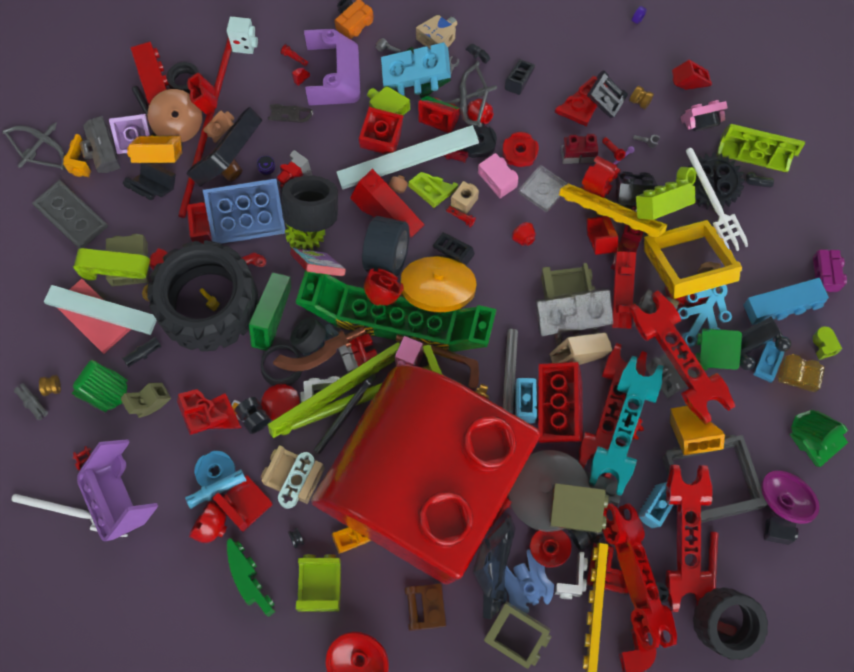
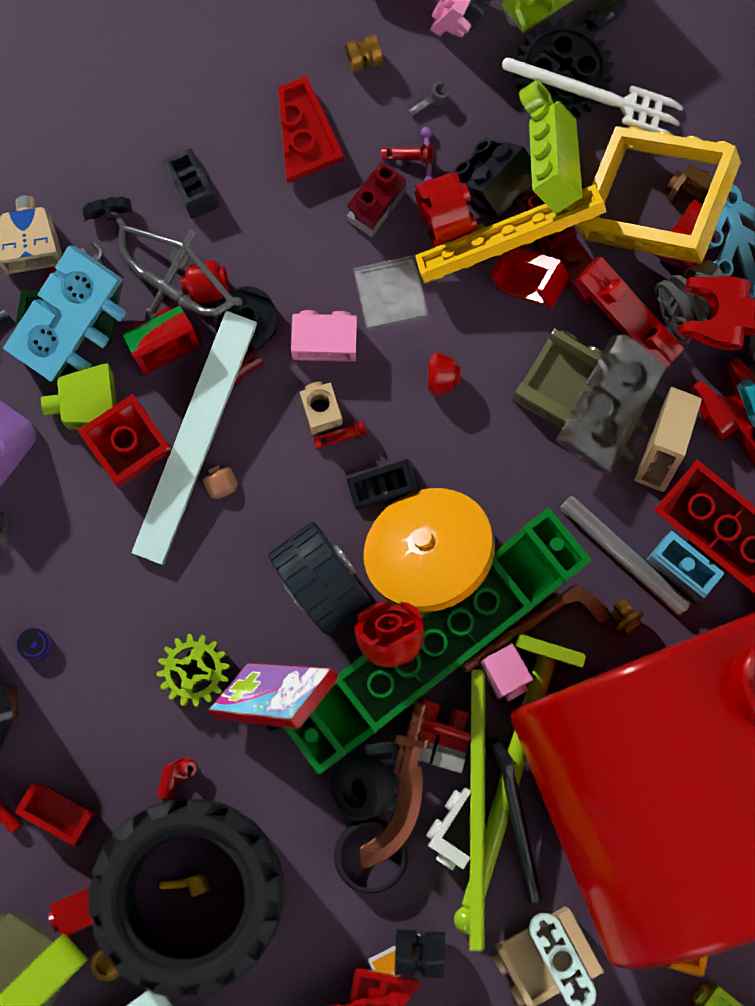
camera: 55 degrees left, 10 degrees up
(244, 211) = (87, 731): medium blue slope -> none
(269, 311) = (279, 811): green slope -> none
(279, 400) = (425, 898): red dish -> none
(297, 167) = (92, 614): hips -> none
(309, 203) = (141, 610): black tyre -> none
(378, 199) = (238, 526): red wedge -> none
(431, 188) = (268, 442): lime wing -> none
(516, 158) = (305, 258): red plate -> none
(604, 97) = (325, 102): black plate -> none

